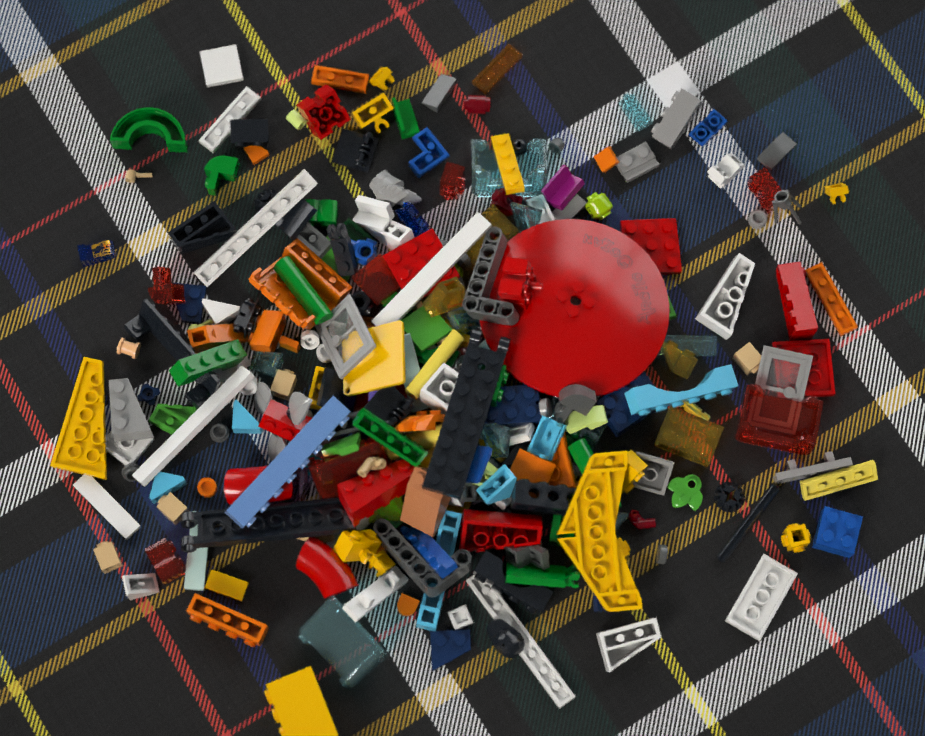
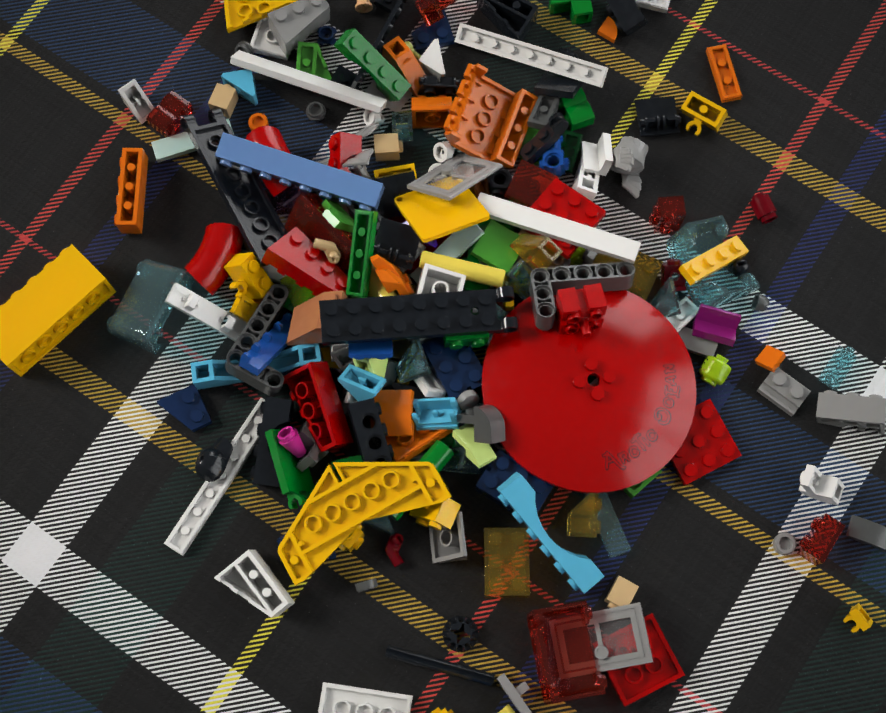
camera: 70 degrees right, 0 degrees up
(107, 506) = (204, 46): white tile -> none
(107, 556) = (154, 64): tan brick -> none
(226, 585) = (169, 179): yellow tile -> none
(243, 421) = (337, 121): medium azure slope -> none
(289, 344) = (430, 135): orange tile -> none
(296, 119) = (661, 50): yellowish green hinge -> none
(302, 290) = (487, 122): green brick -> none
(323, 112) = (678, 66): red brick -> none
(380, 76) = (746, 107): yellow tile -> none
(405, 118) = (713, 146): green panel -> none
(407, 605) = (213, 350): orange tile -> none
(408, 217) = (608, 196): clear blue hinge -> none
(432, 153) = (687, 186): blue brick -> none
(439, 92) = (758, 169): slope -> none
(460, 617) = (221, 407): white tile -> none
(497, 69) = (812, 213): clear orange tile -> none
(521, 563) = (291, 440): none -> dark pink cone
(684, 494) = (442, 585): bright green plate -> none
(695, 410) = (537, 562): yellowish green axle -> none
(708, 128) = (859, 450): blue slope -> none
(724, 303) = (674, 542): white wedge -> none
(783, 200) = (815, 559): dark grey plant -> none
(796, 301) = (710, 621): wedge -> none
(831, 299) = (732, 660): orange tile -> none

